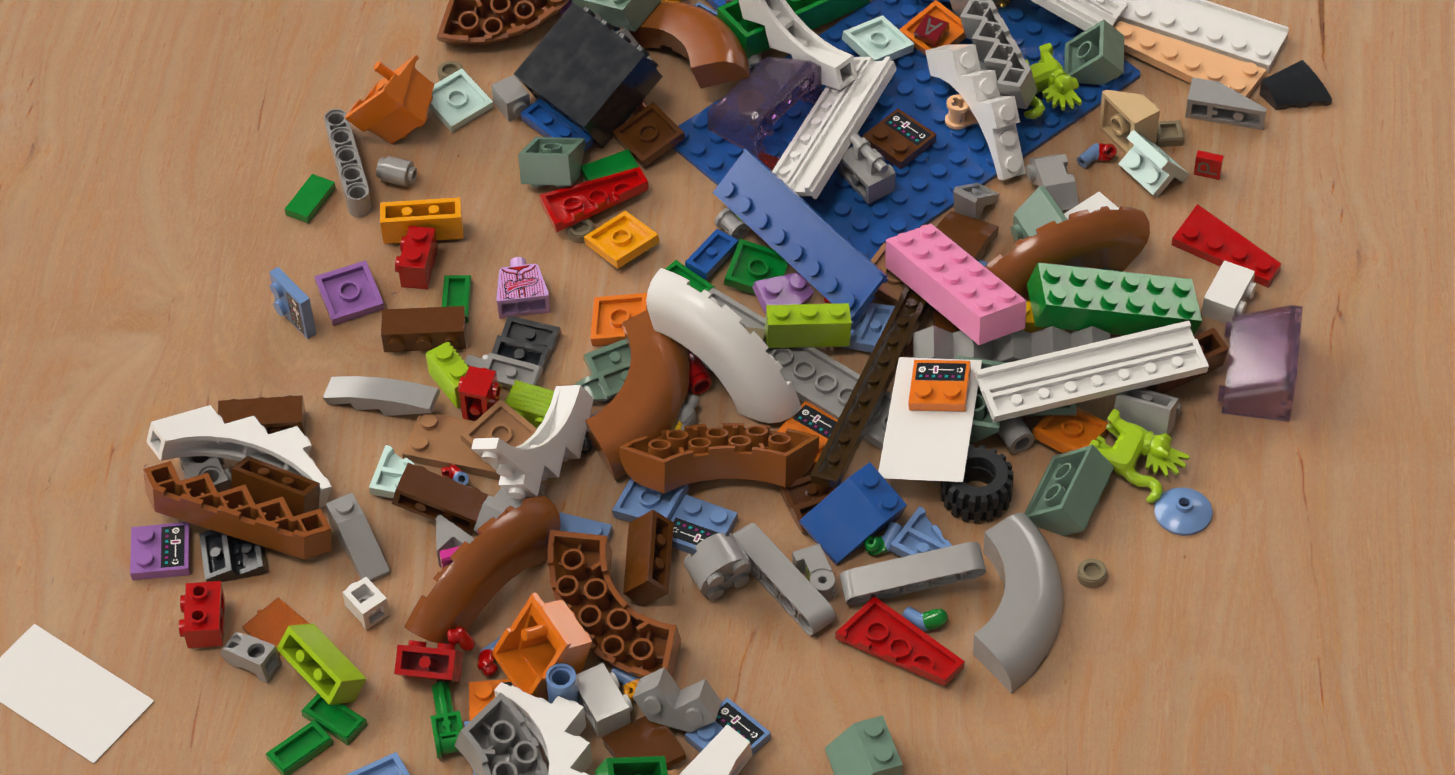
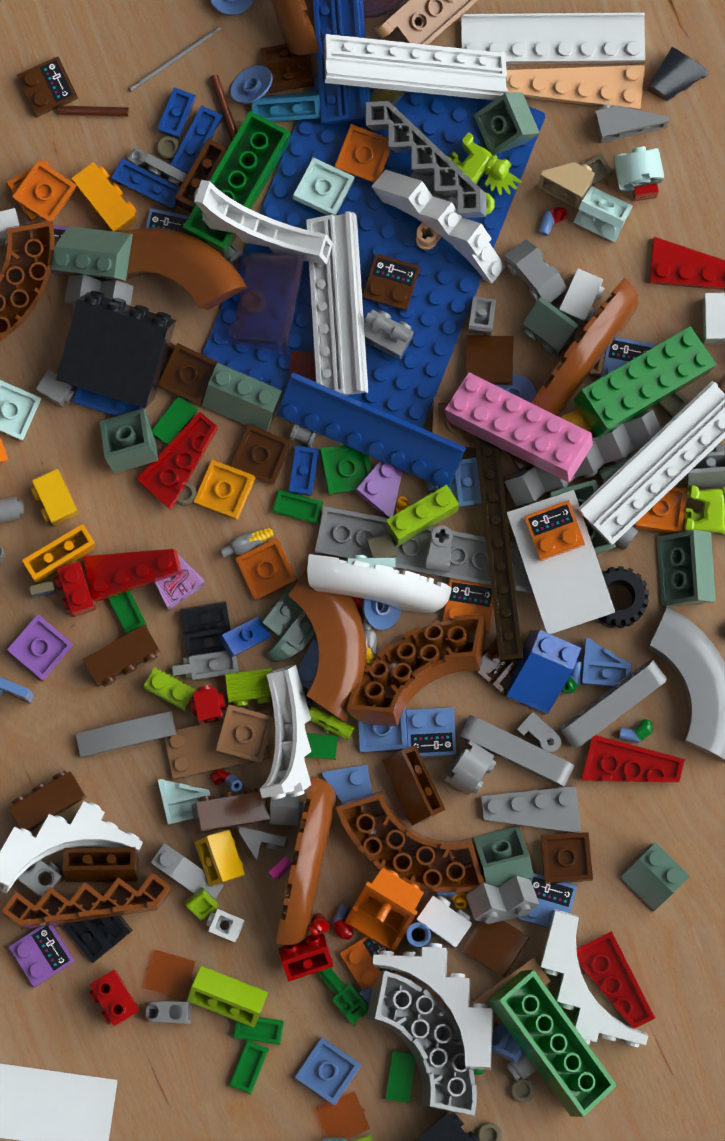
camera: 30 degrees left, 30 degrees up
(353, 570) = (201, 904): none -> lime tile
(385, 246) = (42, 589): none -> dark tan tile
(400, 537) = (219, 858): none -> yellow brick
(450, 176) = (55, 498): none -> yellow brick
(477, 258) = (123, 572): none -> red wing
(557, 361) = (244, 637): none -> blue plate
(570, 490) = (322, 746): none -> green tile
(598, 474) = (331, 723): none -> lime pin
(611, 287) = (247, 542): none -> light grey piece
(679, 225) = (261, 454): none -> reddish brown plate
(686, 168) = (241, 397): none -> sand green slope
(698, 662) = (503, 856): none -> sand green slope
(718, 408) = (382, 616): none -> medium blue dish
(774, 699) = (566, 858): none -> reddish brown plate
(781, 647) = (544, 809): none -> light grey wing
(808, 361) = (439, 553): none -> light grey piece
(931, 30) = (364, 160): dark red tile -> none
(1213, 133) = (638, 168): none -> light aqua brick

